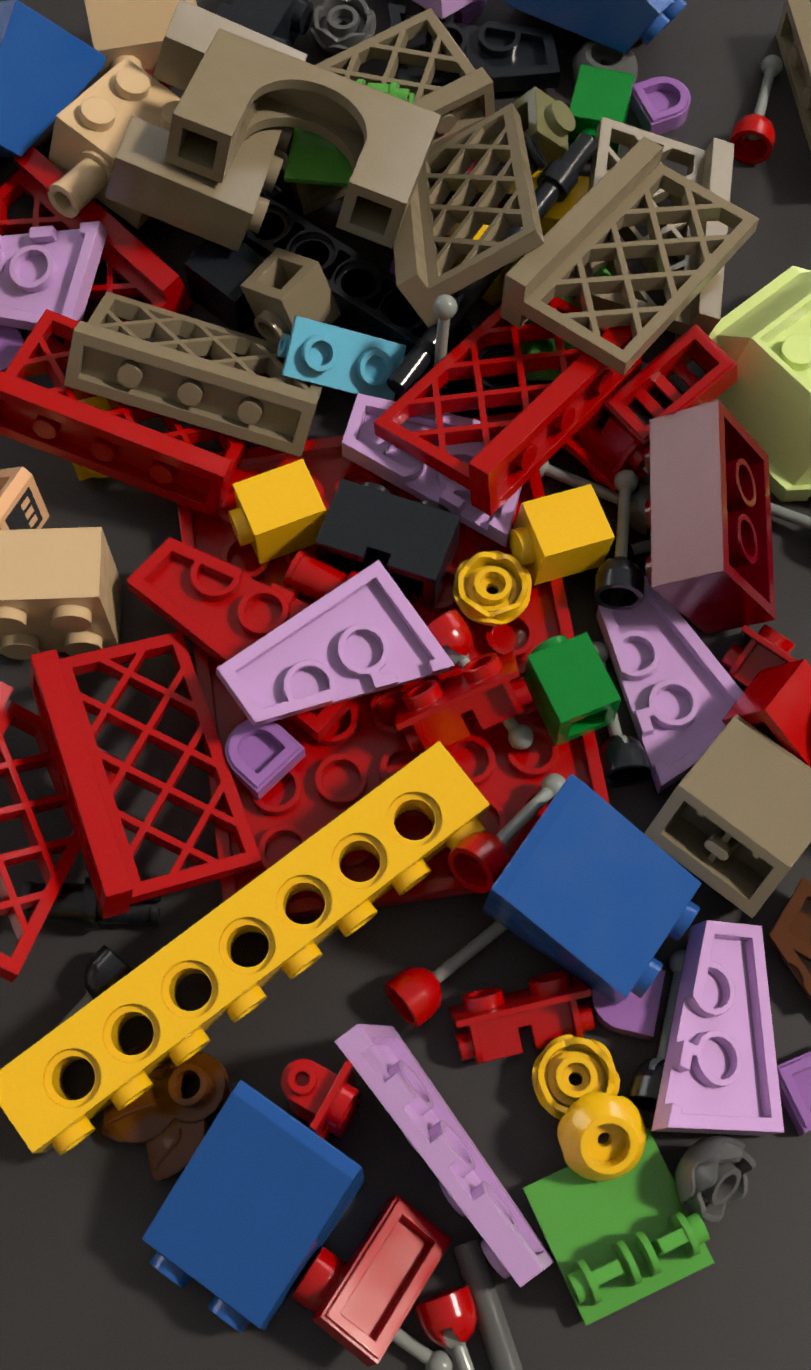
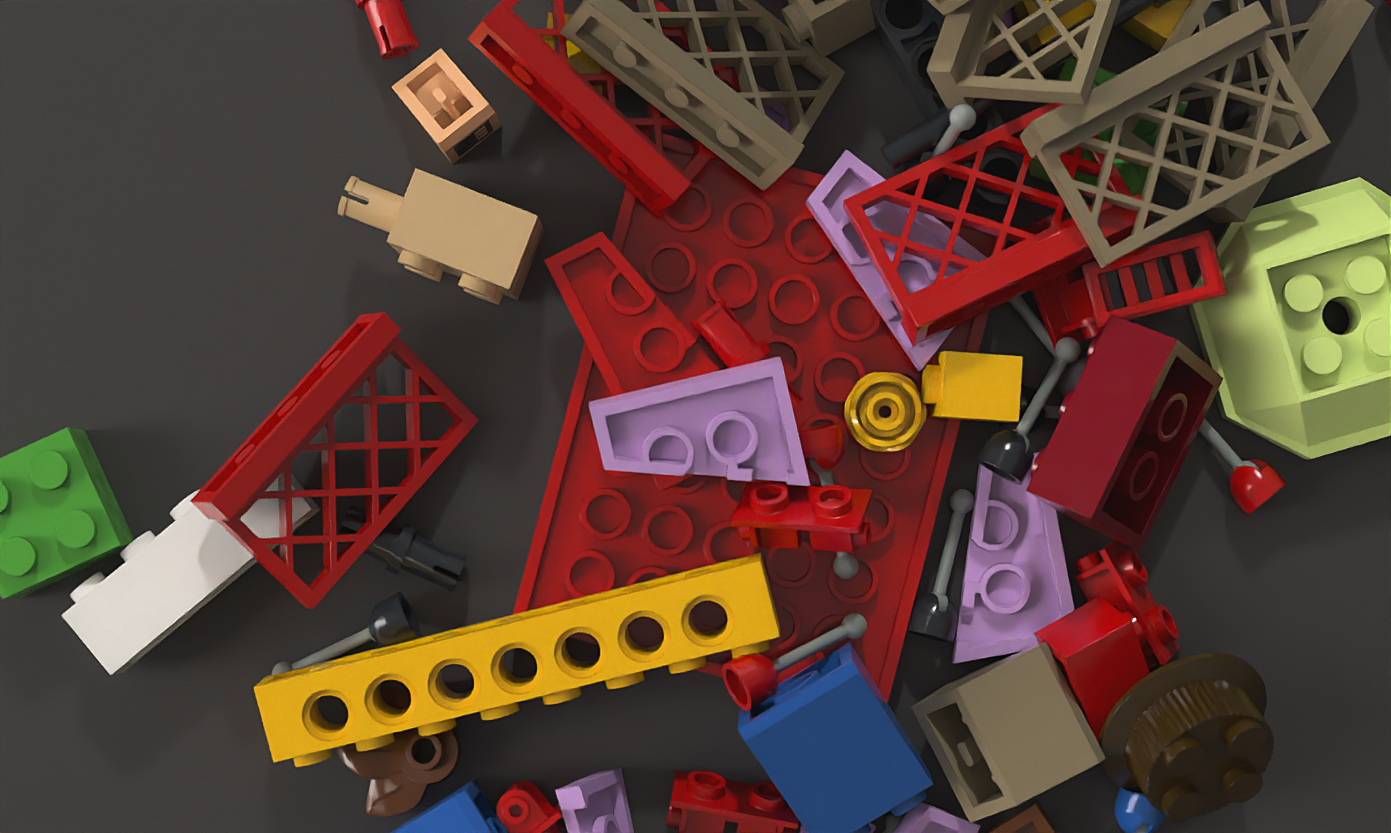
camera: 25 degrees right, 20 degrees up
(87, 787) = (435, 442): red fence -> none
(261, 755) = (600, 489): medium lavender tile -> none
(277, 511) = (715, 246): yellow brick -> none
(339, 358) = (848, 95): medium azure hinge -> none
(406, 536) = (809, 318): black brick -> none
(418, 992) = (655, 750): red hinge -> none
(570, 687) = (910, 543): green brick -> none

